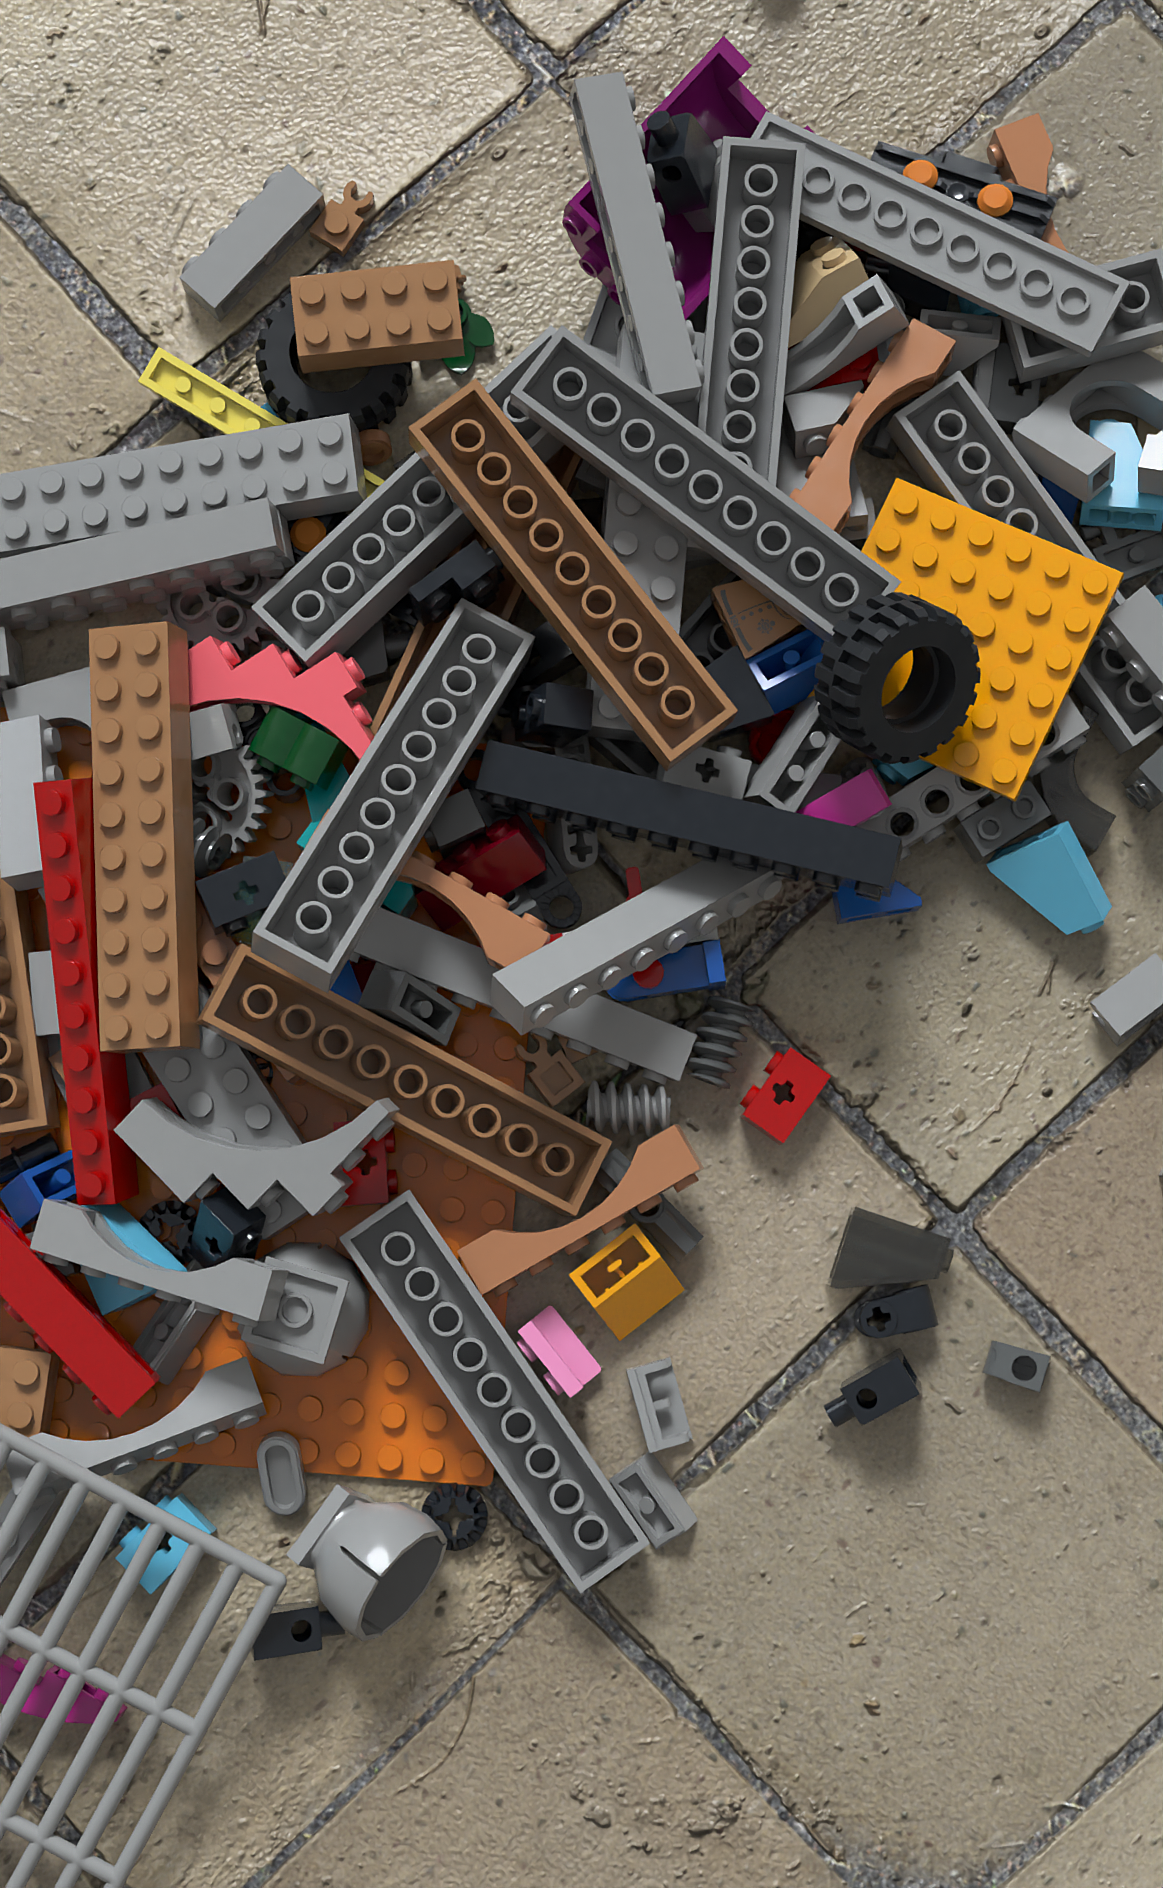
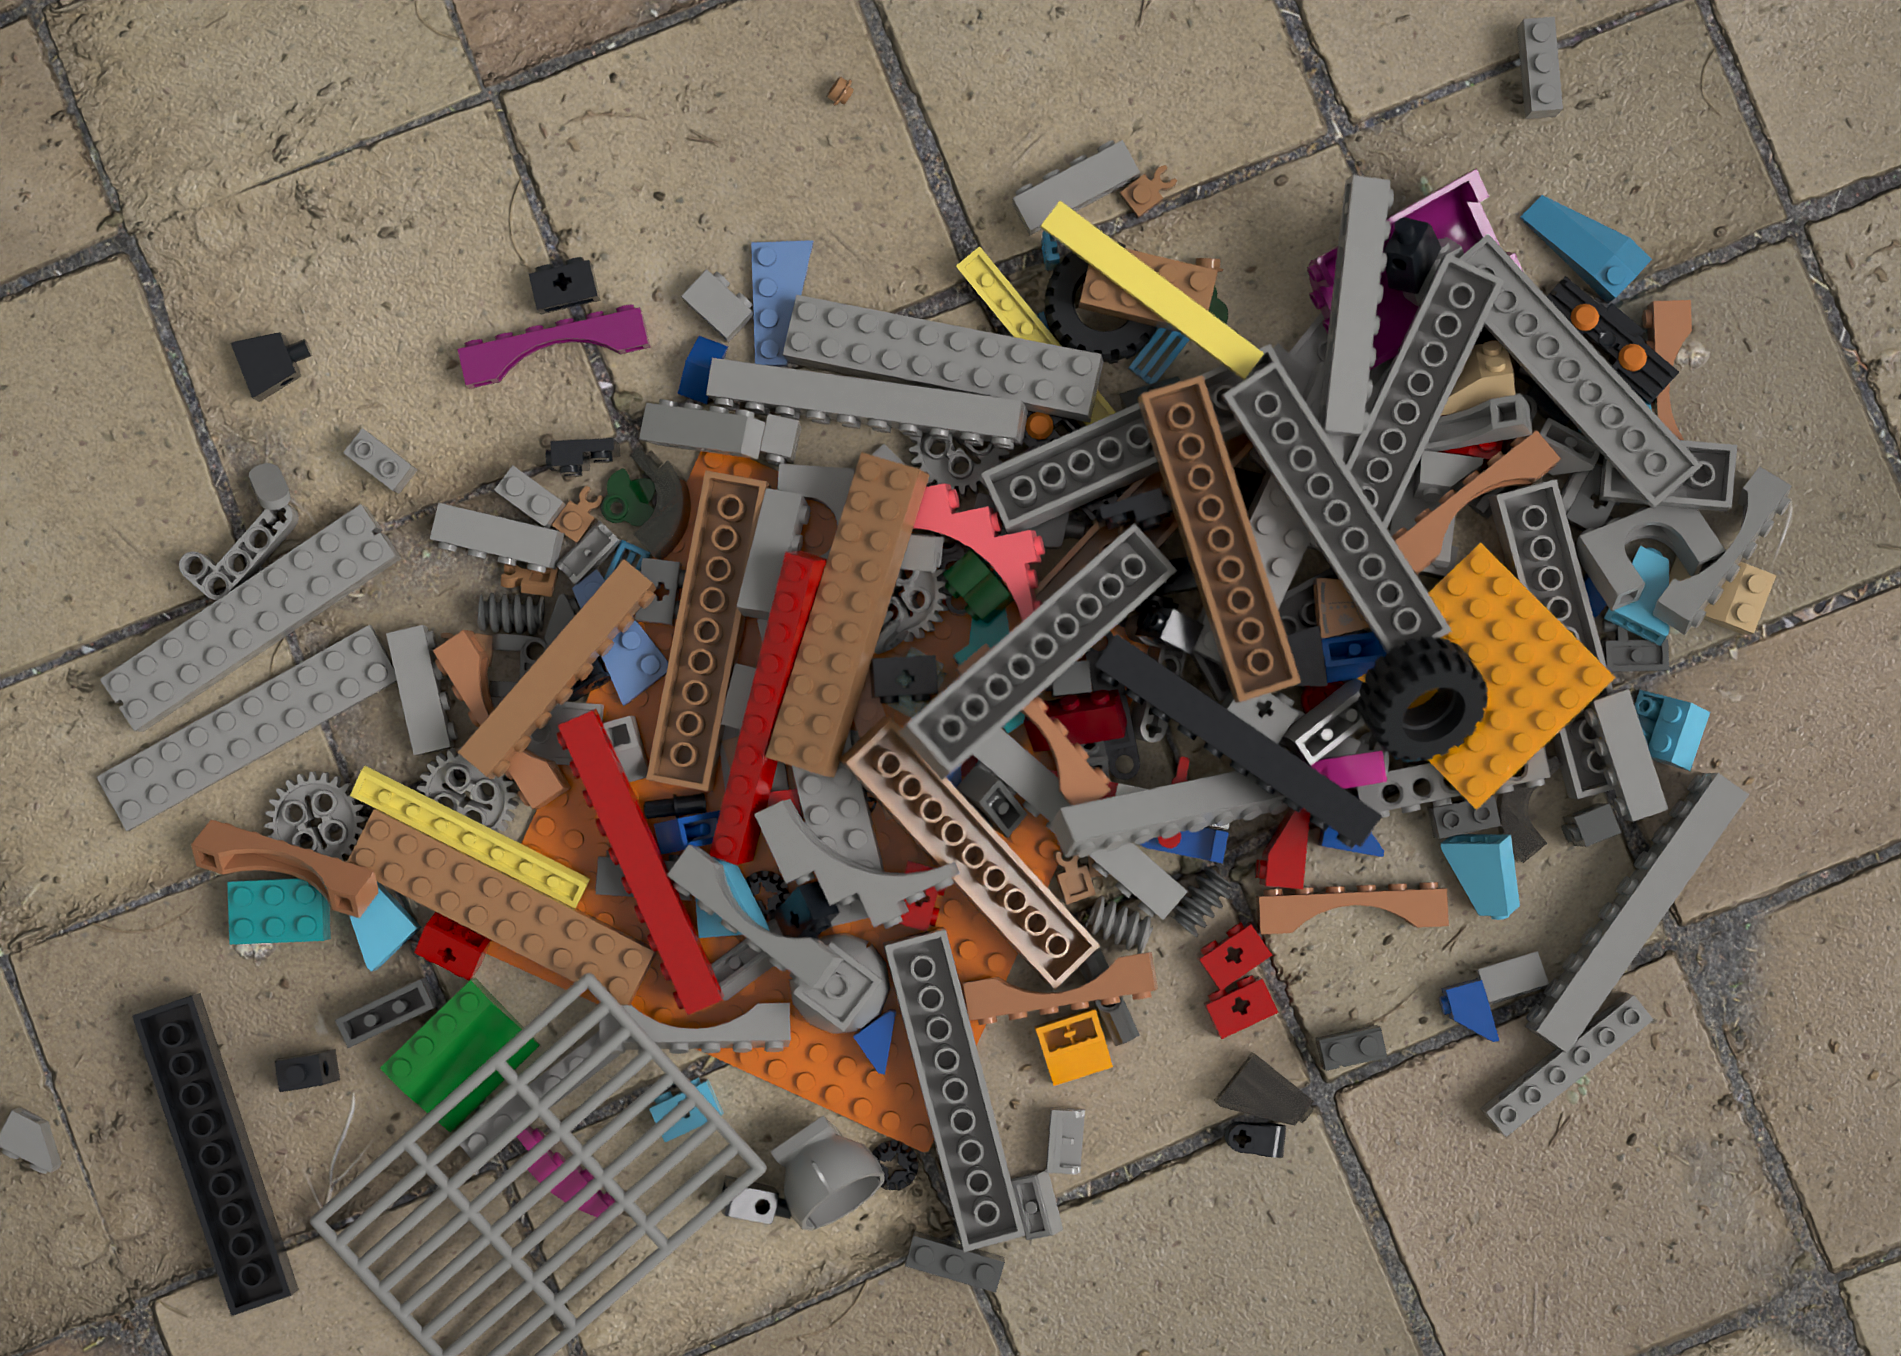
camera: 20 degrees right, 5 degrees up
(244, 319) = (1049, 251): none -> dark azure tile
(281, 1473) = (783, 1091): light grey tile -> none
(375, 446) = (1111, 374): nougat tile -> none
(375, 1363) = (876, 1040): none -> blue slope
(378, 307) = (1151, 290): none -> light yellow tile
(436, 372) = (1143, 373): none -> dark azure tile
(559, 1350) = (1009, 1077): bright pink bracket -> none
(569, 1613) = (951, 1262): none -> dark grey brick
(802, 948) = (1286, 852): none -> red slope
(838, 1148) = (1257, 1009): none -> red brick
(891, 1381) = (1234, 1182): black torso -> none
(898, 103) = (1594, 251): none -> dark azure wedge
(971, 1156) = (1351, 1047): none -> dark grey brick
(983, 954) = (1416, 906): none -> nougat arch
(1017, 1365) = (1327, 1206): dark grey leg -> none
(1099, 1054) = (1469, 1007): none -> blue slope

